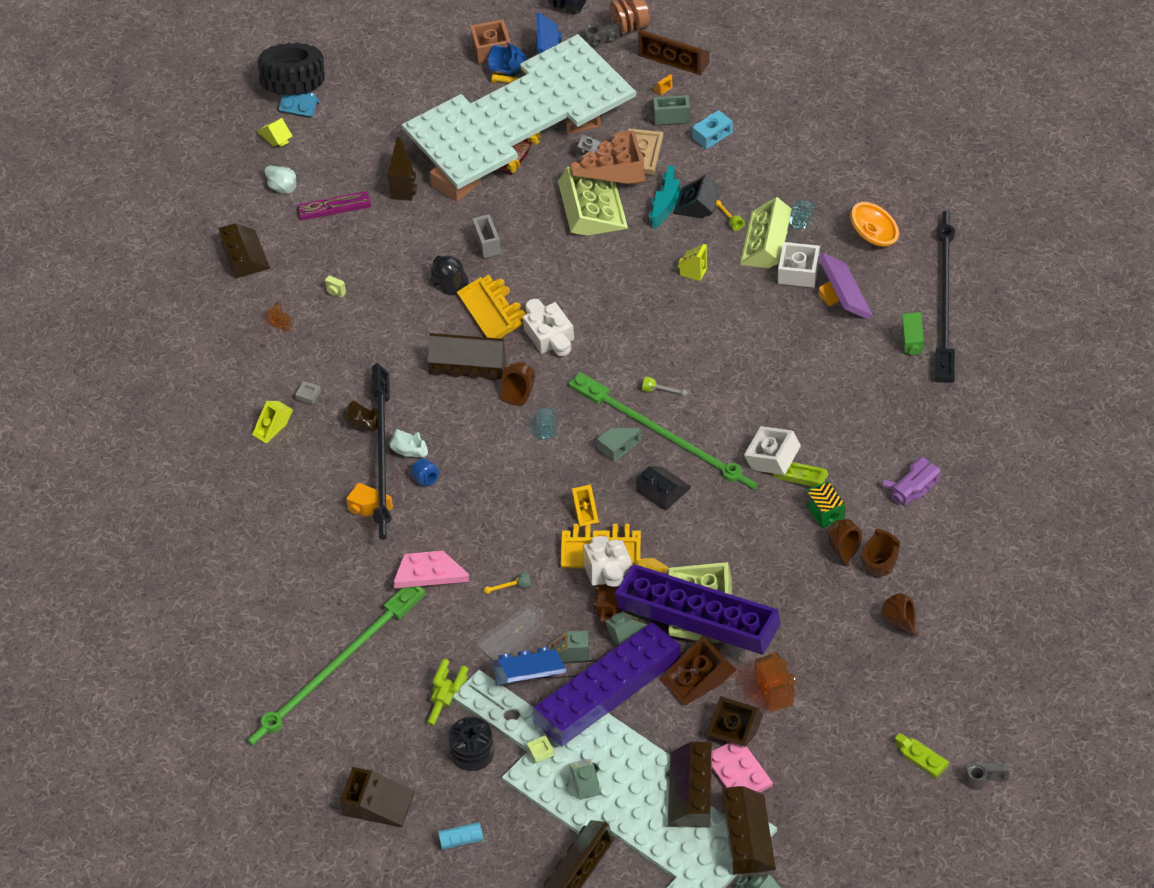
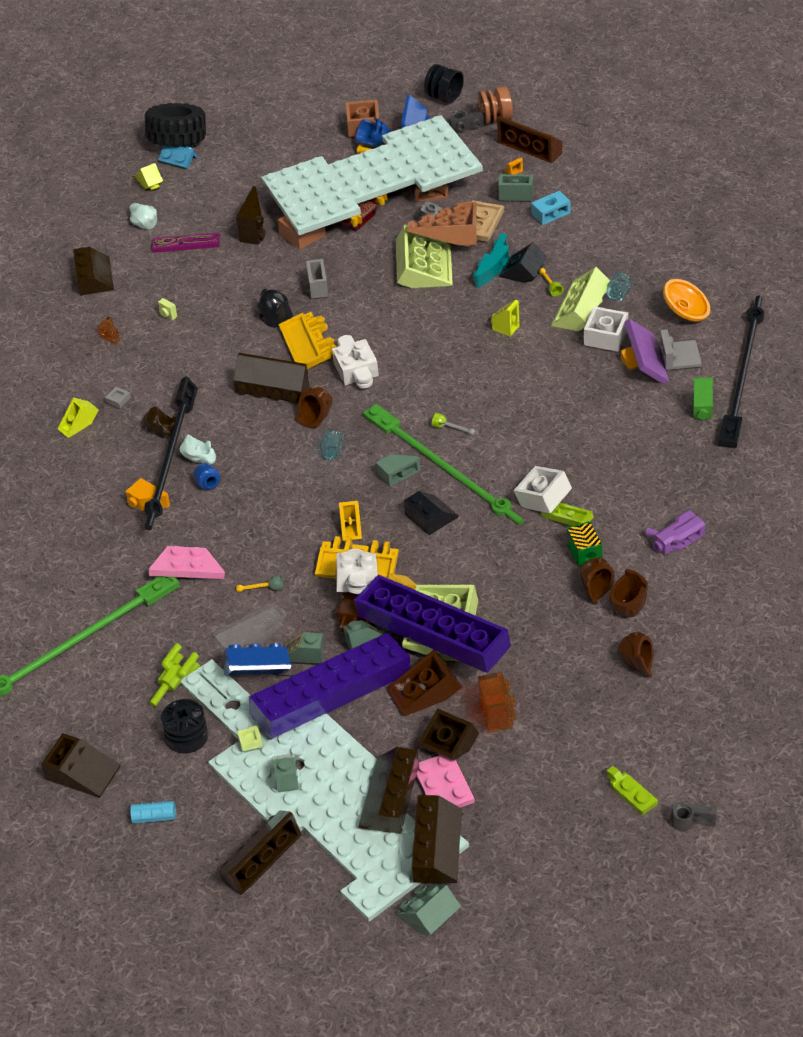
camera: 10 degrees right, 5 degrees down
(877, 284) = (678, 354): none -> light grey bracket

